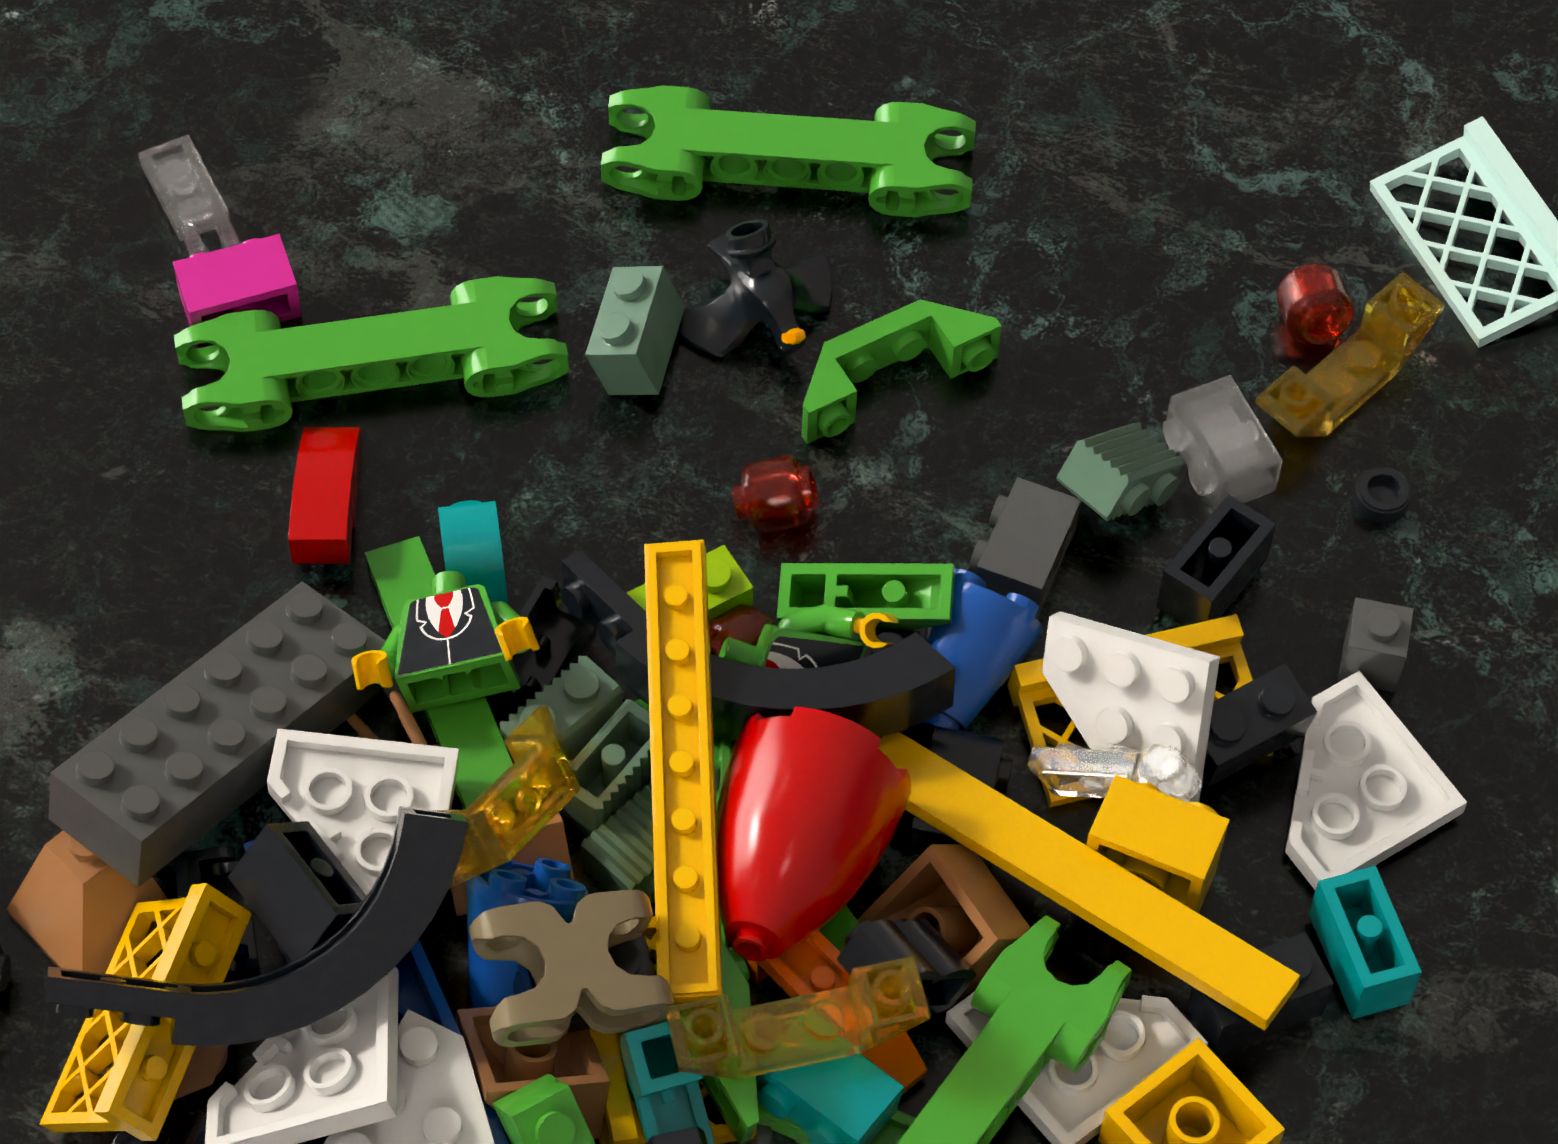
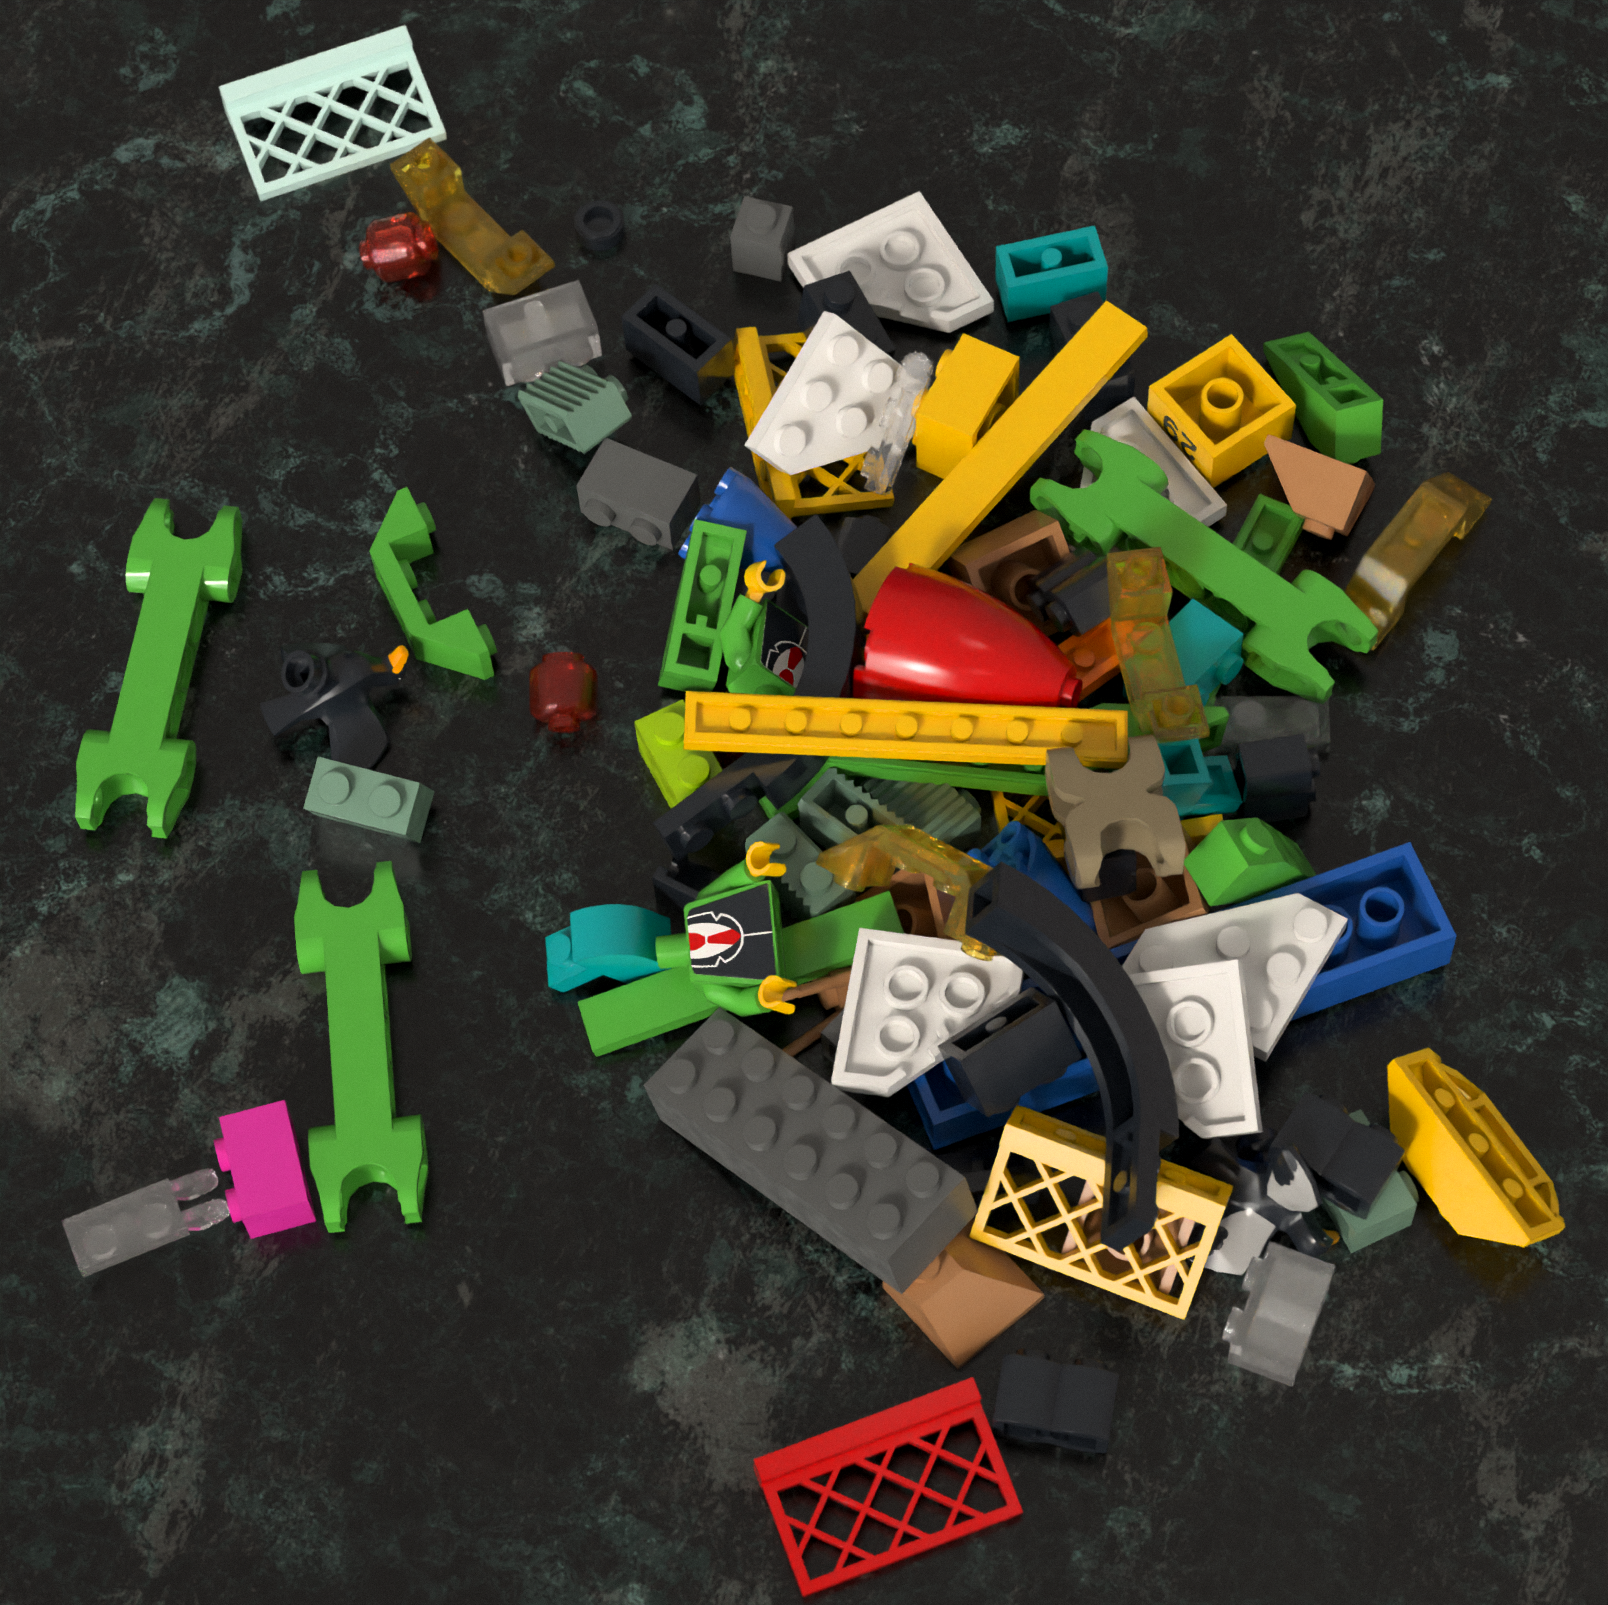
camera: 80 degrees left, 5 degrees up
(324, 495) = (522, 1082): red slope -> none

